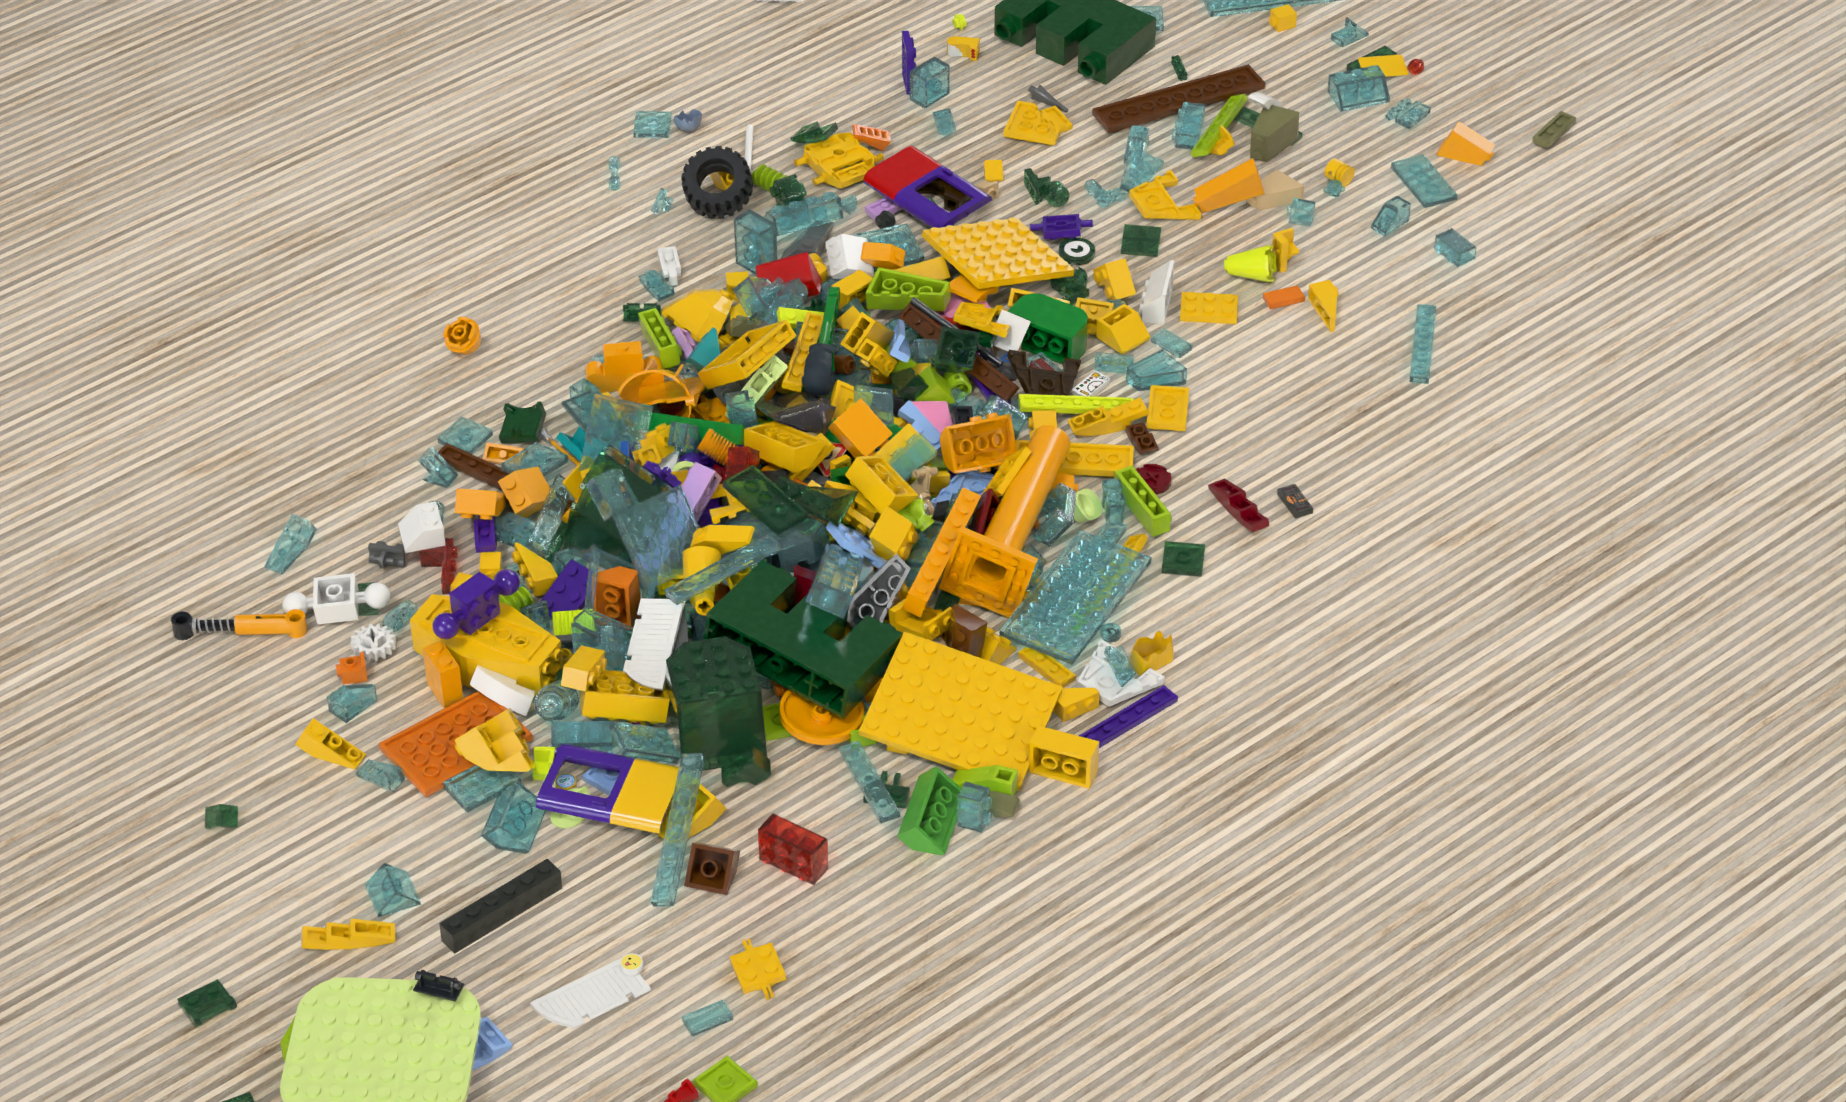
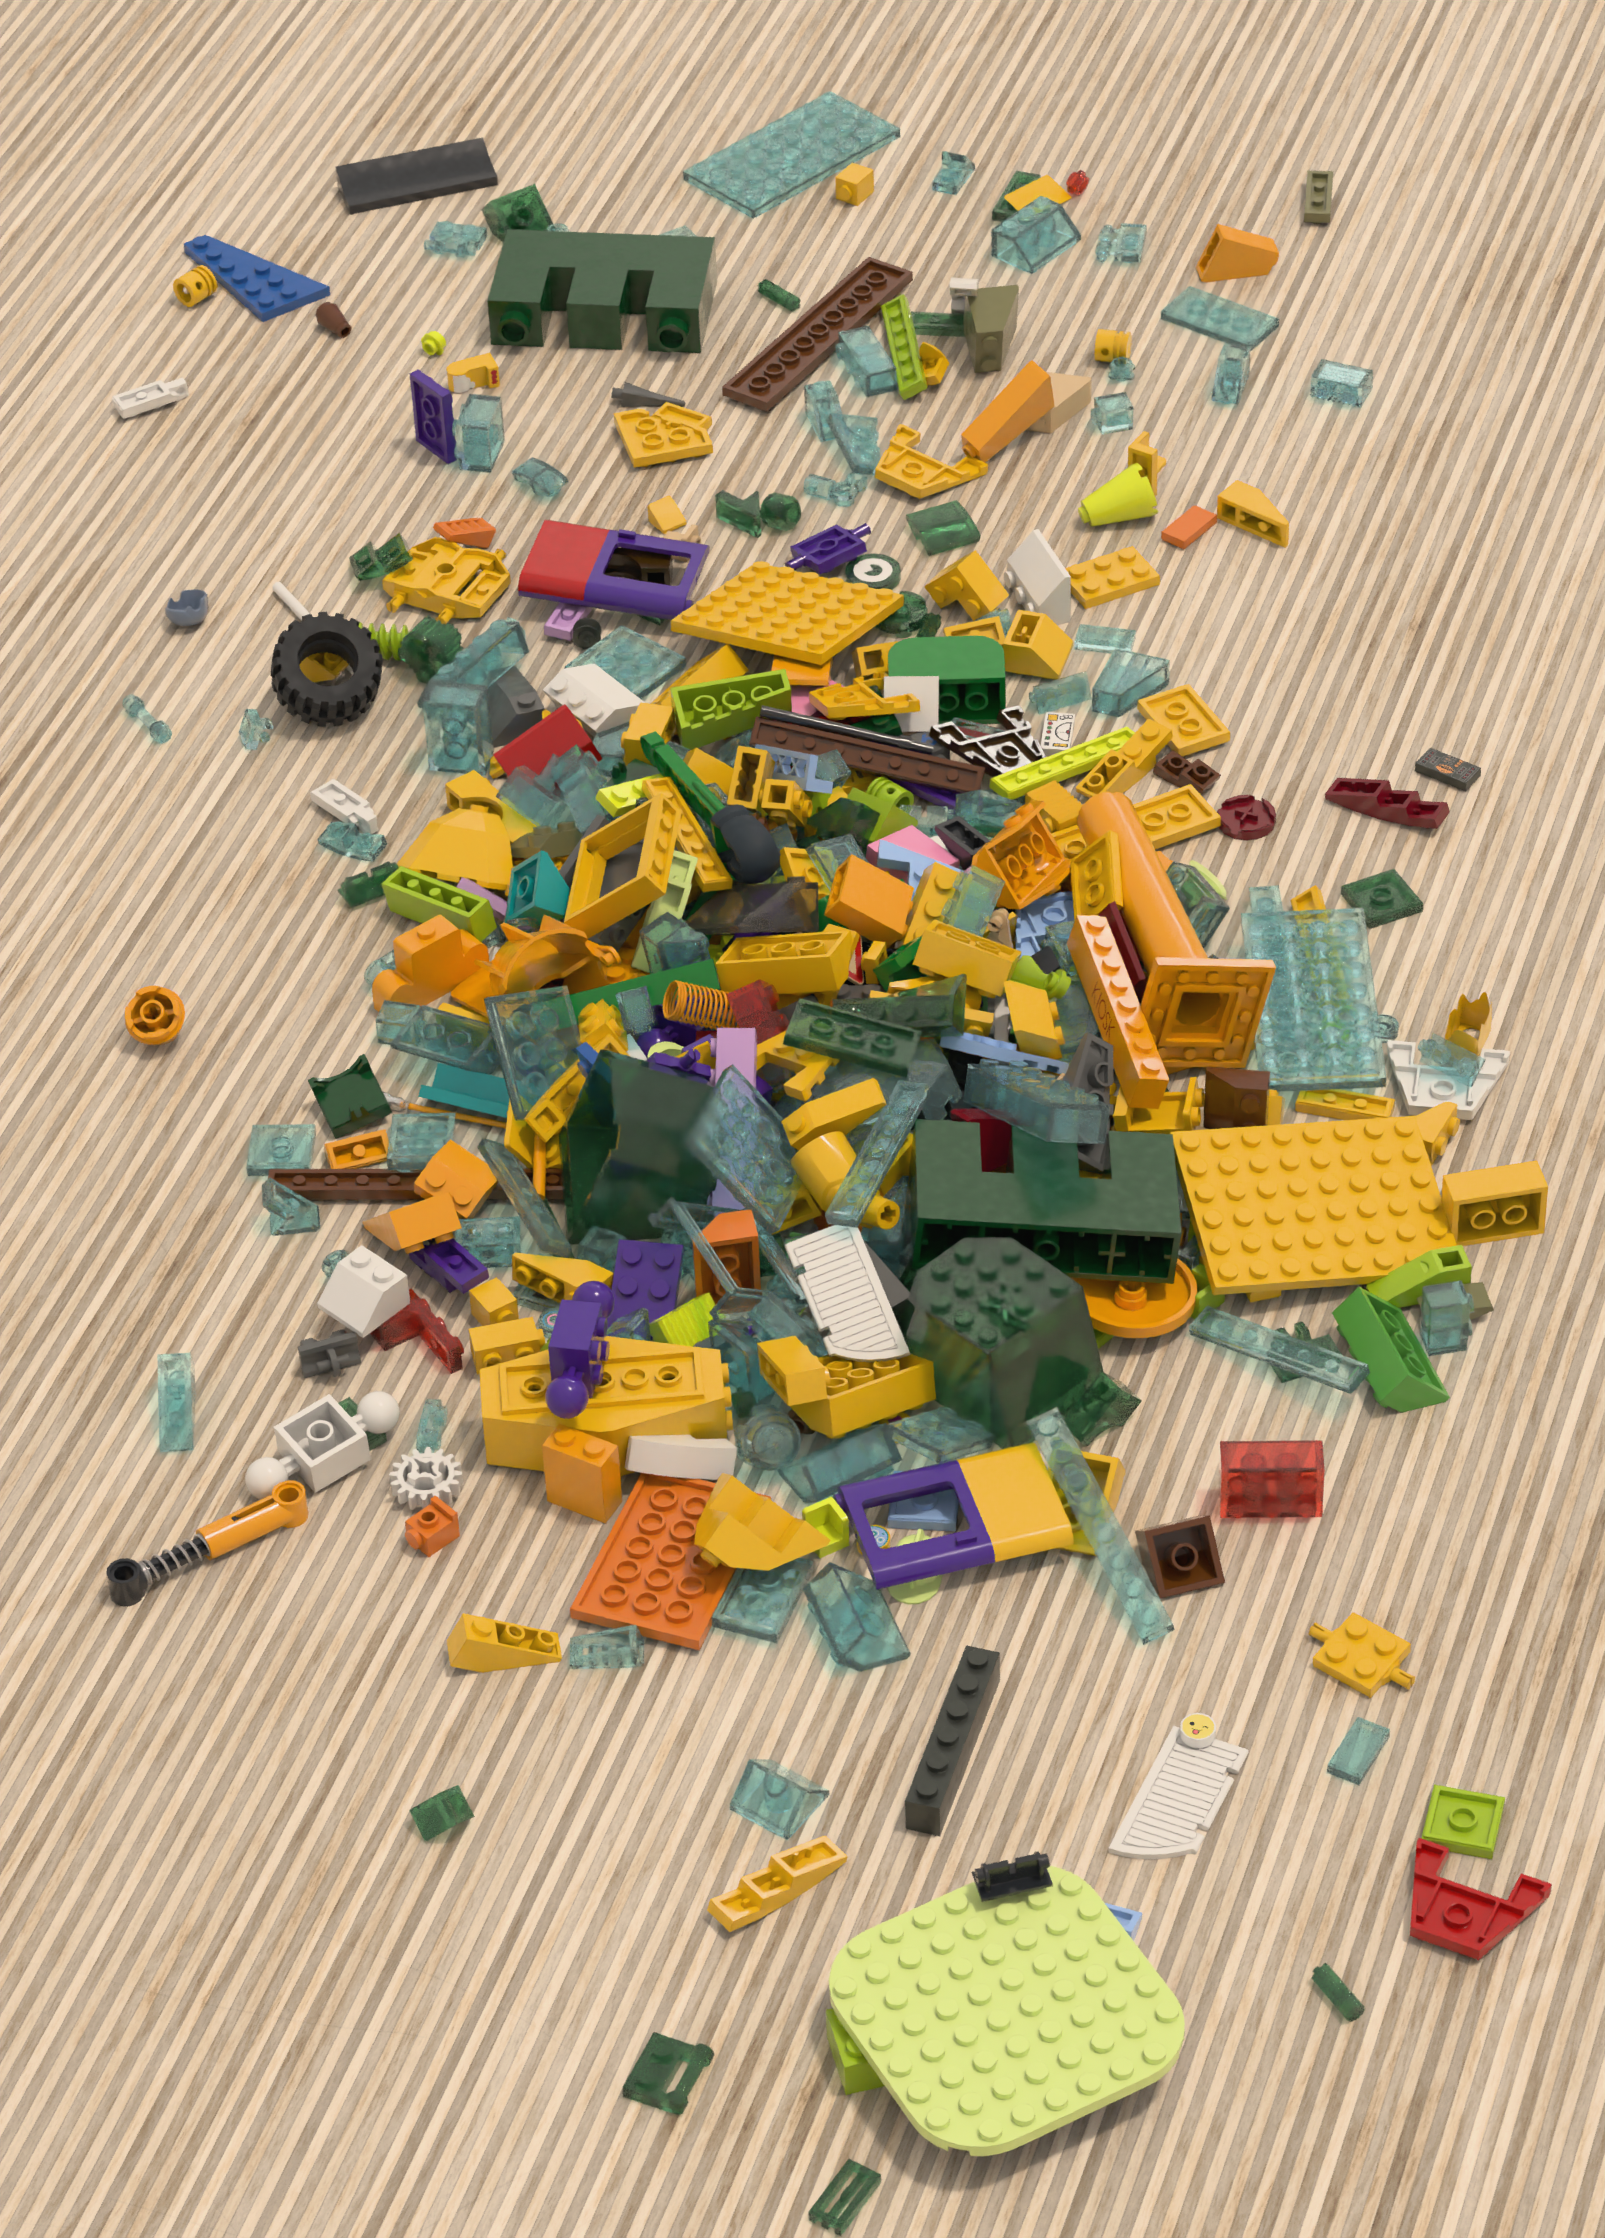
camera: 30 degrees left, 0 degrees up
(351, 700) = (471, 1571): clear light blue slope -> none
(611, 493) = (663, 1115): clear light blue slope -> none
(652, 124) = (136, 635): clear light blue tile -> none
(883, 255) = (647, 675): light orange slope -> none
(956, 350) = (877, 751): clear green slope -> none
(1113, 500) = (1233, 863): clear light blue brick -> none
(1131, 716) = (1511, 1116): dark purple tile -> none
(1144, 502) = (1272, 847): lime brick -> none
(1422, 344) = (1412, 515): clear light blue plate -> none

